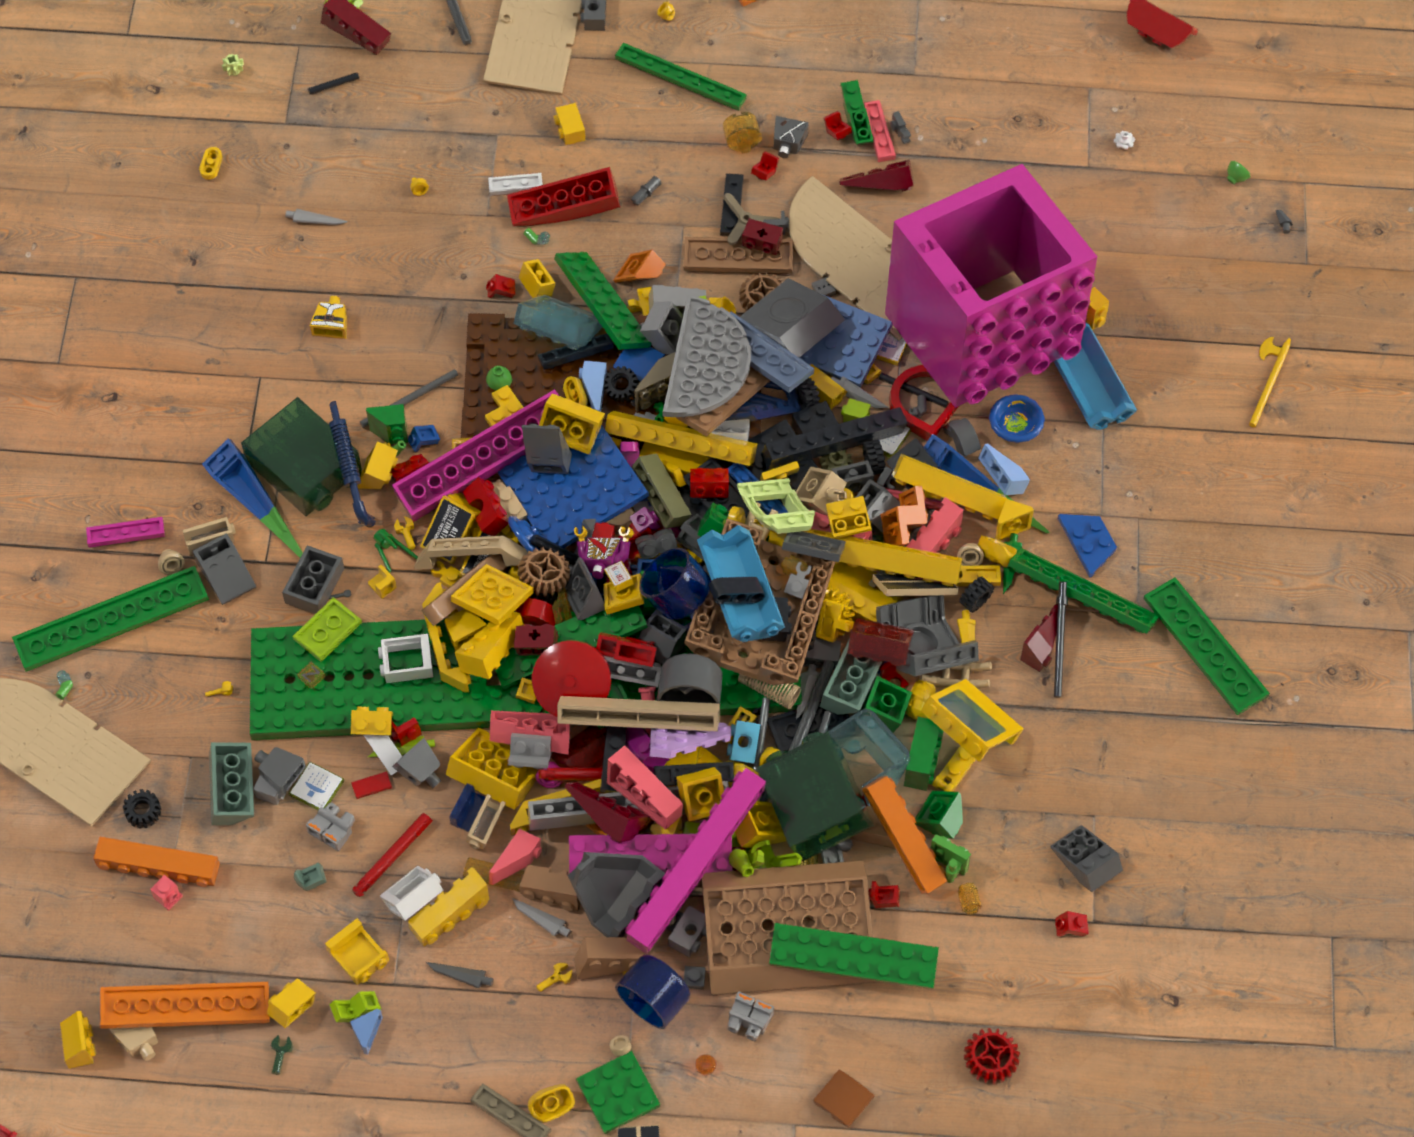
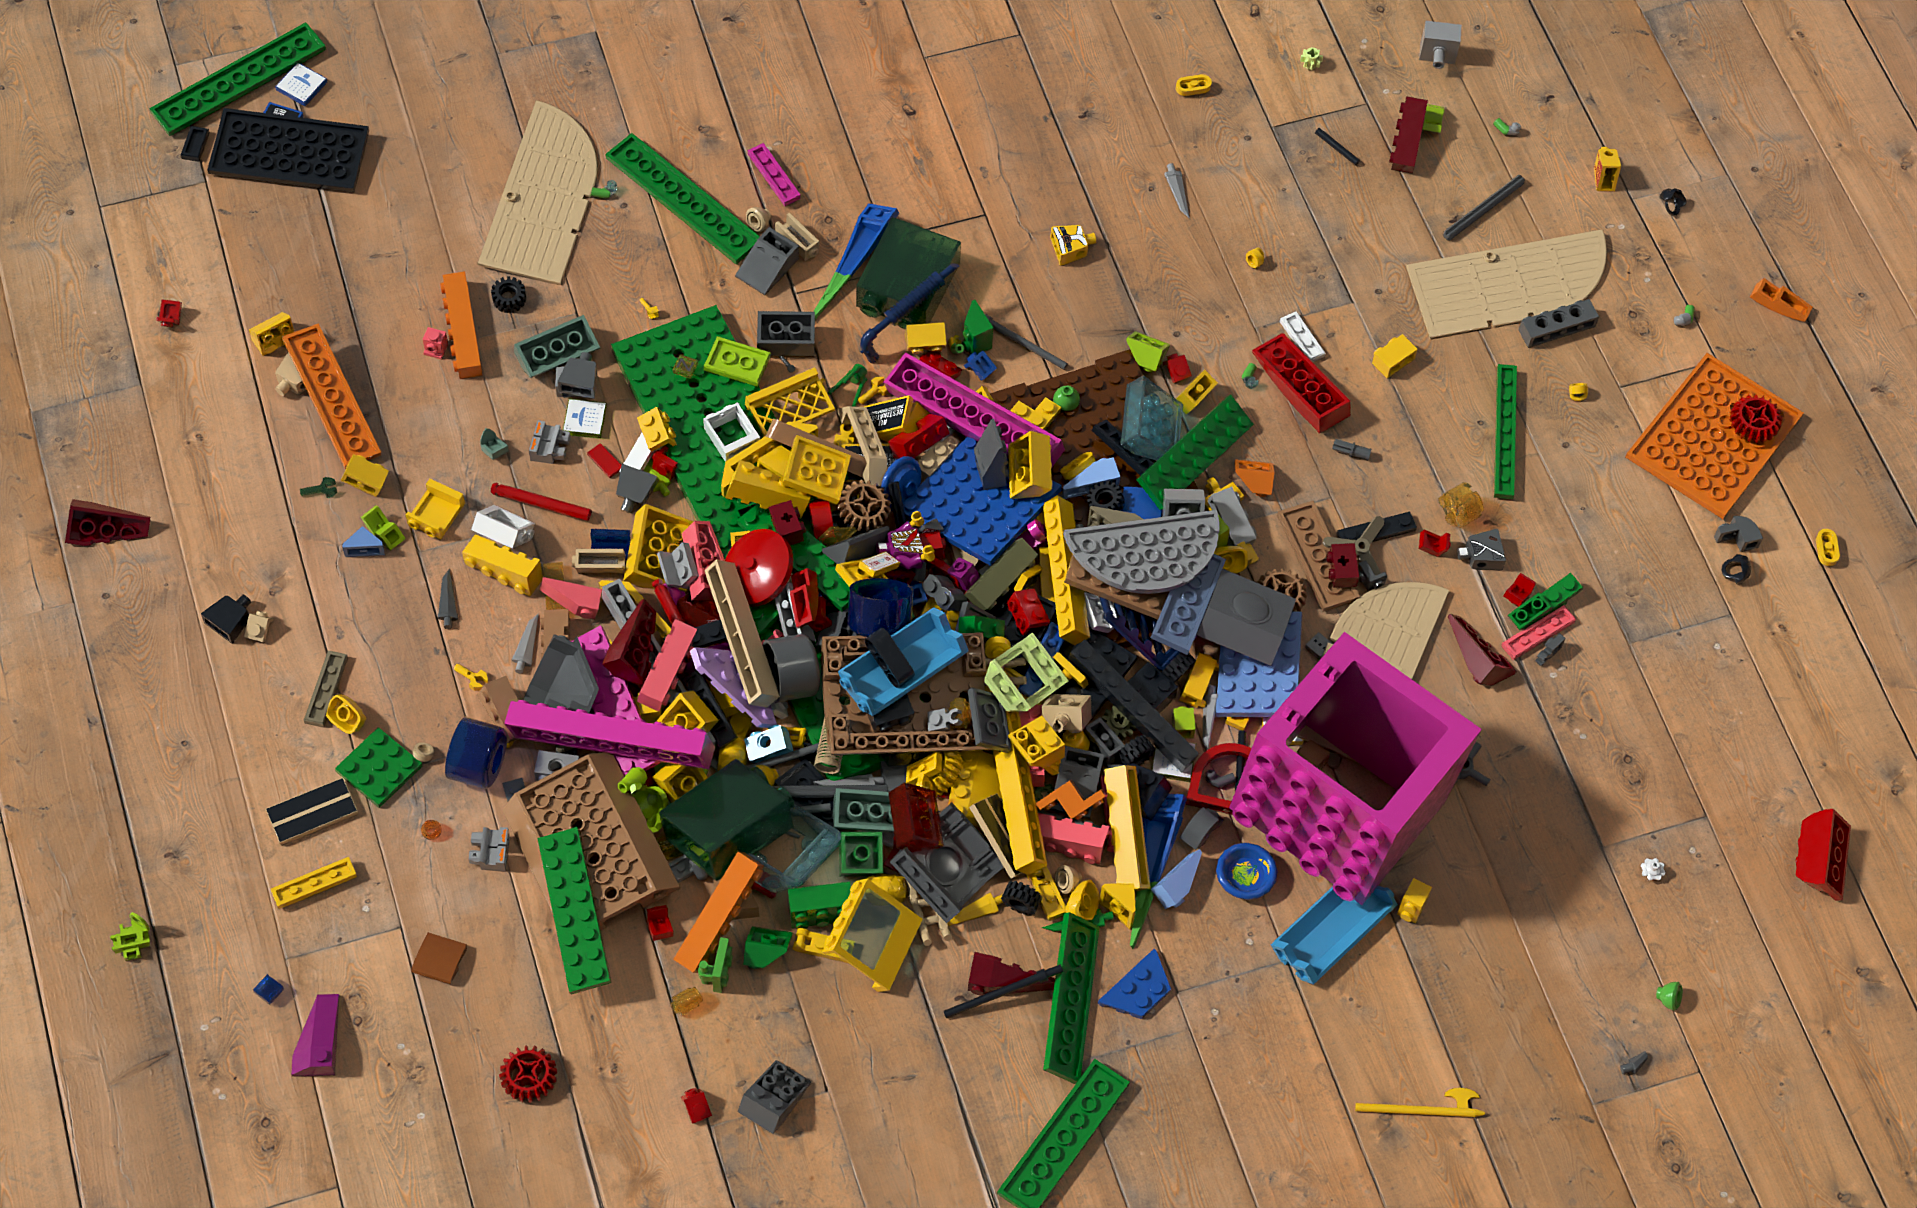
camera: 65 degrees right, 0 degrees up
(381, 596) = (785, 388): none -> yellow fence
(475, 300) = (1147, 351): none -> lime slope

